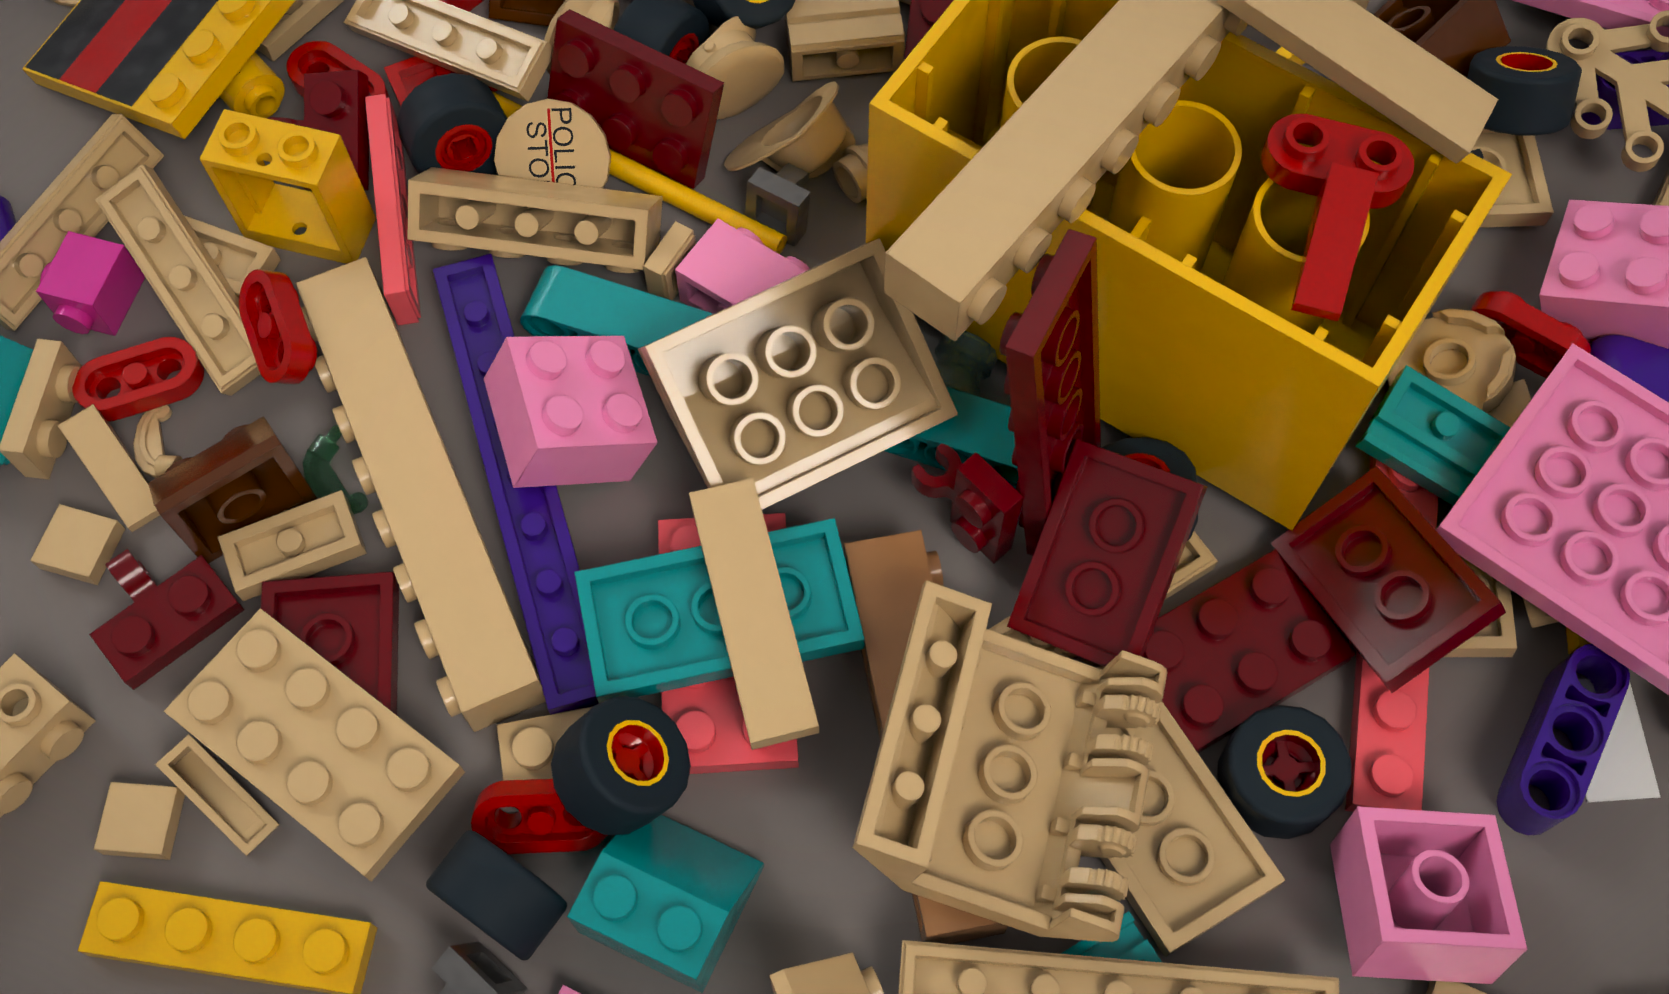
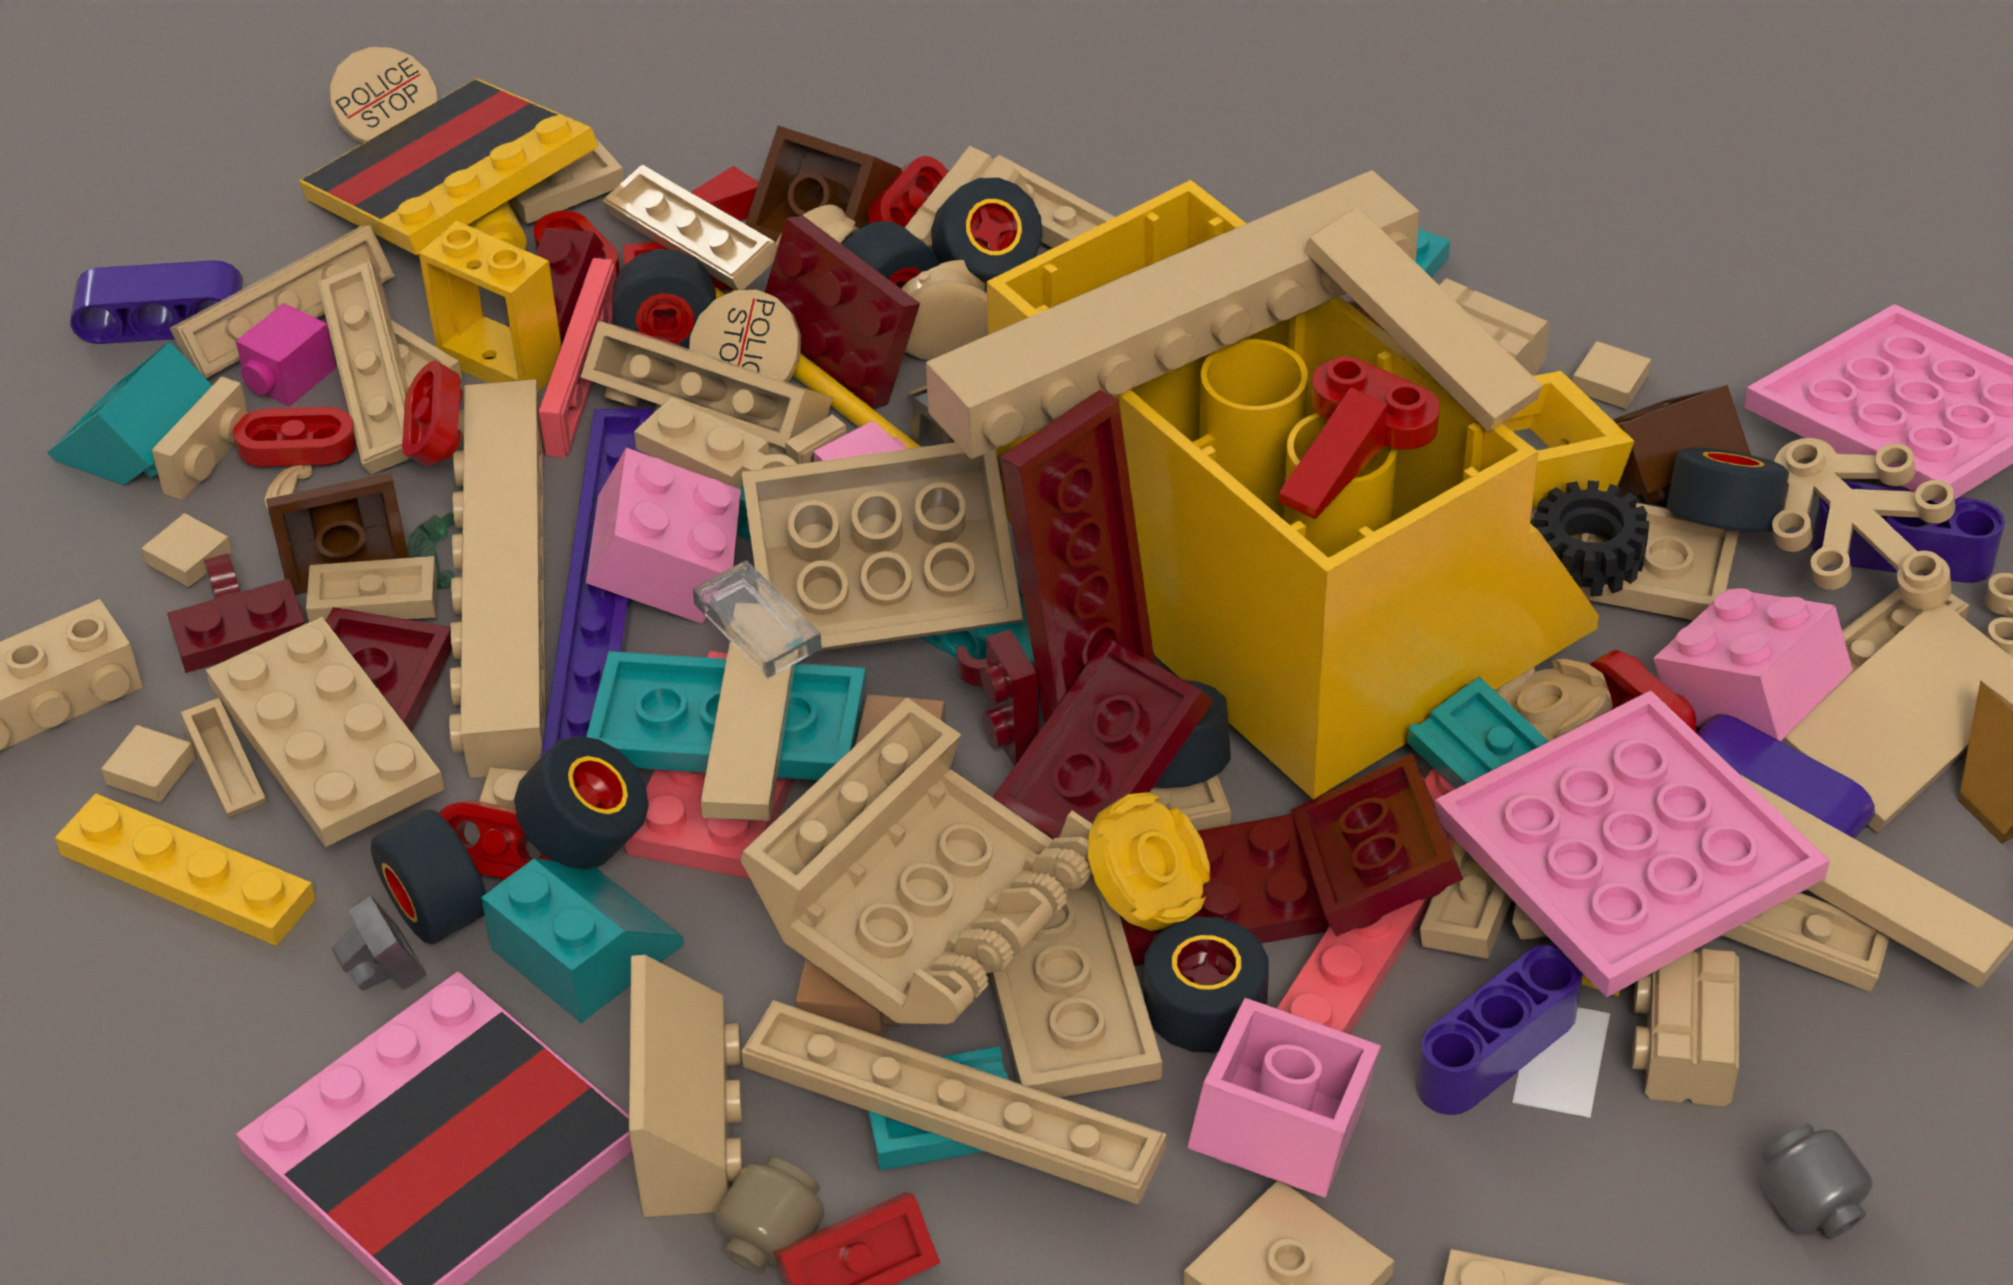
camera: 20 degrees right, 20 degrees down
(111, 466) = (241, 497): tan piece -> none
(578, 296) = (704, 444): none -> tan plate
(720, 507) = (757, 618): none -> clear tile
(1201, 673) = (1148, 861): none -> yellow tile

